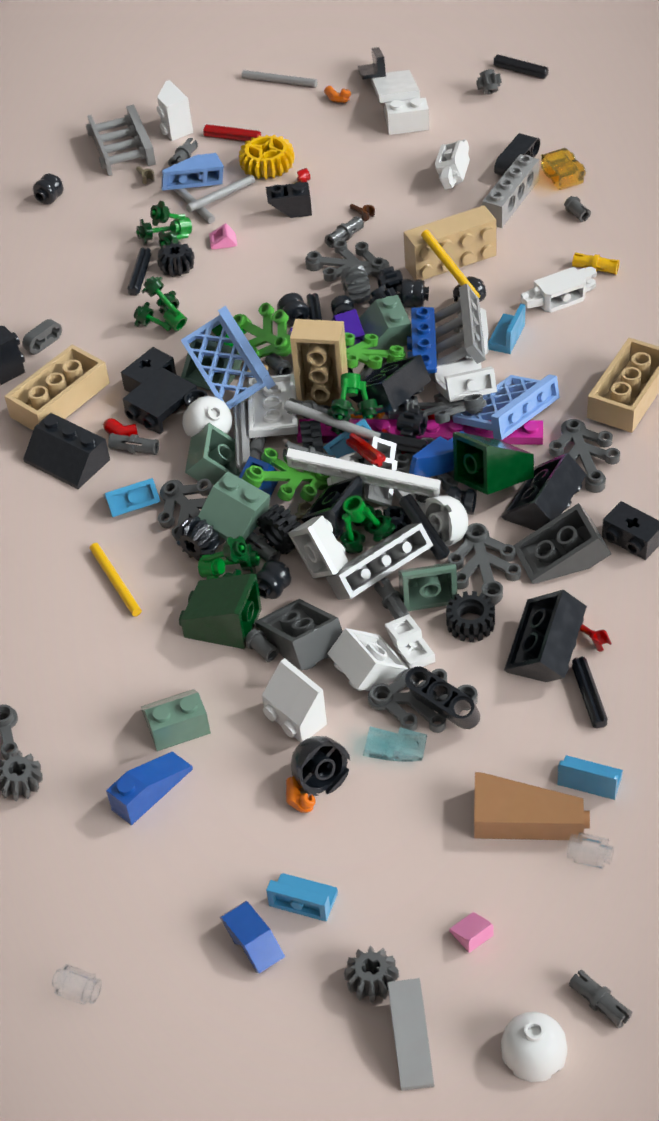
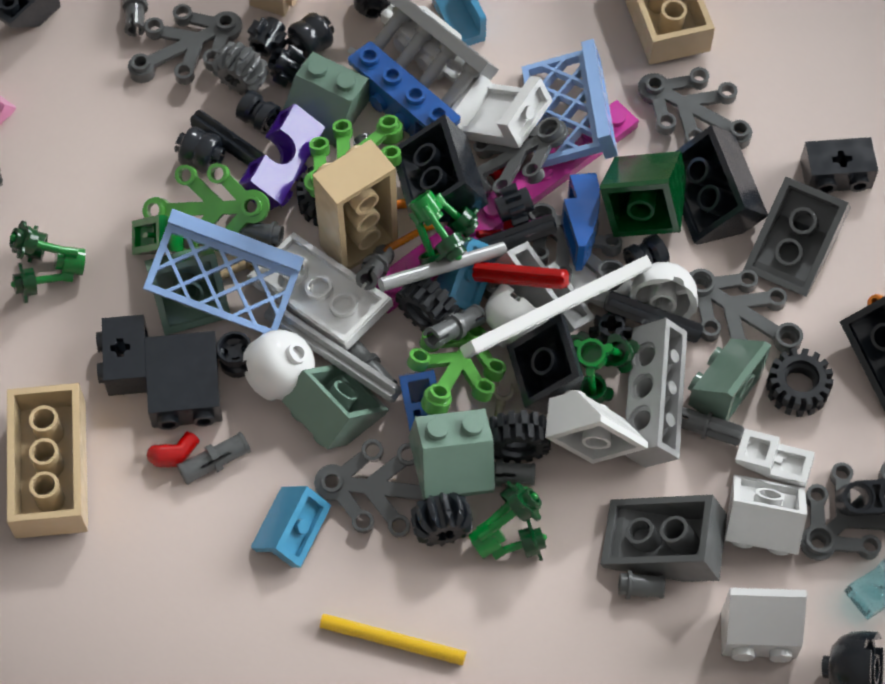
camera: 50 degrees left, 15 degrees up
(66, 451) = (149, 531): black slope -> none
(222, 610) = (566, 581): dark green slope -> none
(273, 579) = (569, 502): black piece -> none

